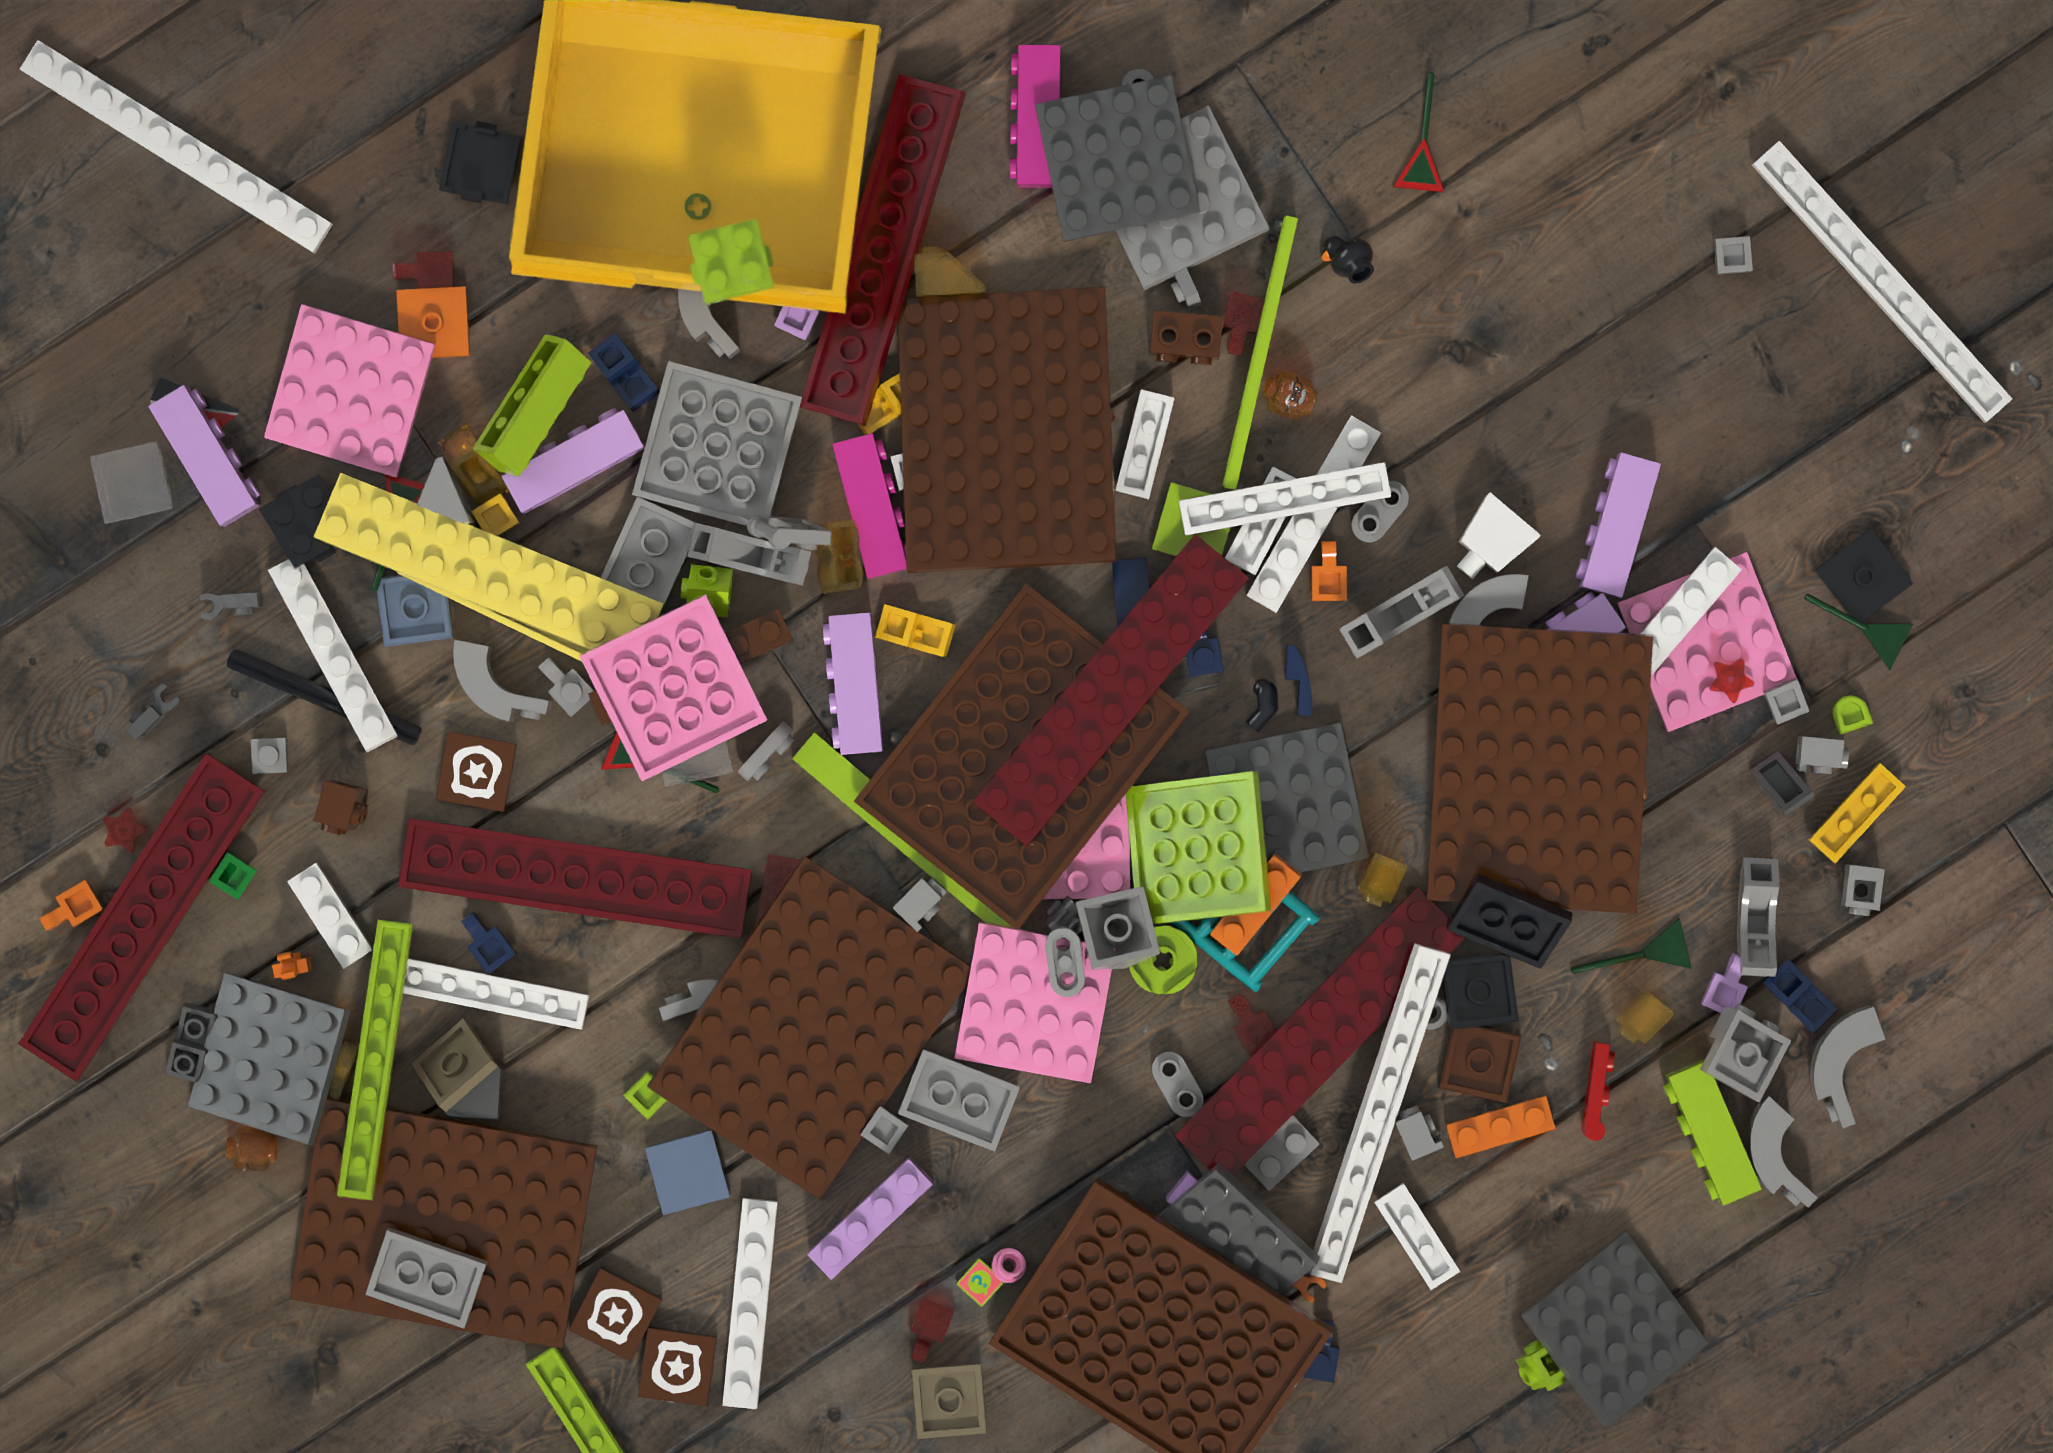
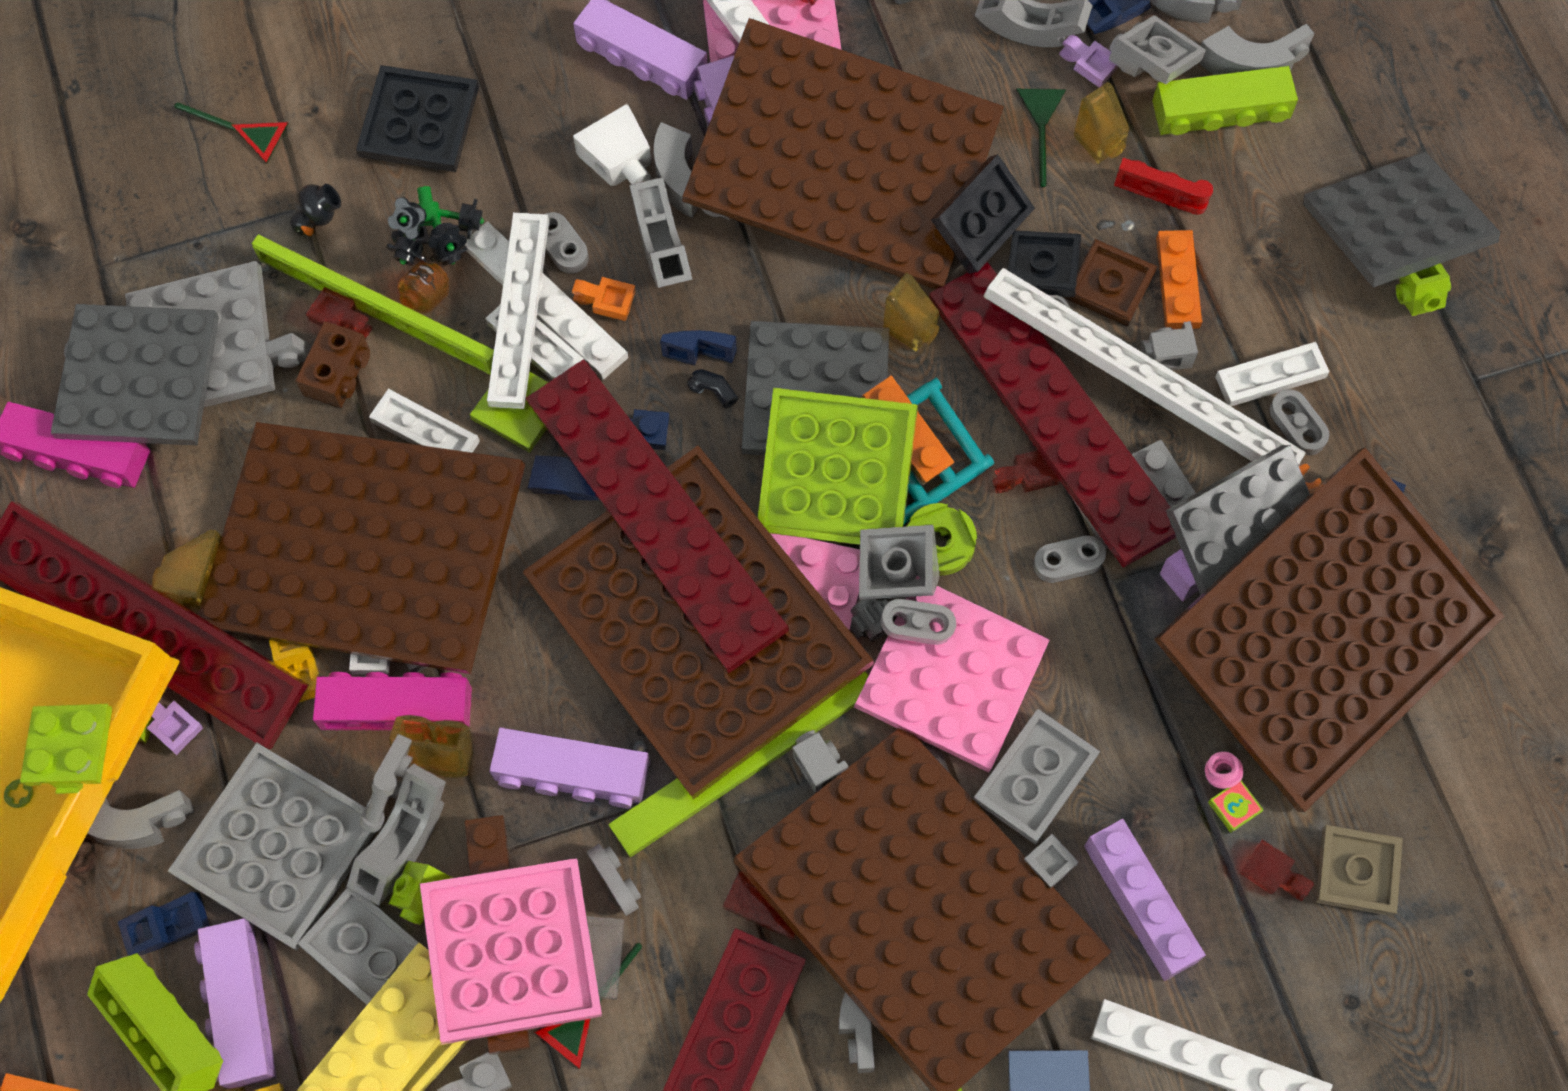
camera: 75 degrees left, 20 degrees down
(915, 631) = (536, 696): yellow slope -> none
(1336, 370) = (444, 238): none -> black plant
(1373, 1271) = (1302, 421): none -> light grey plate
(1478, 325) = (418, 118): none -> black plate

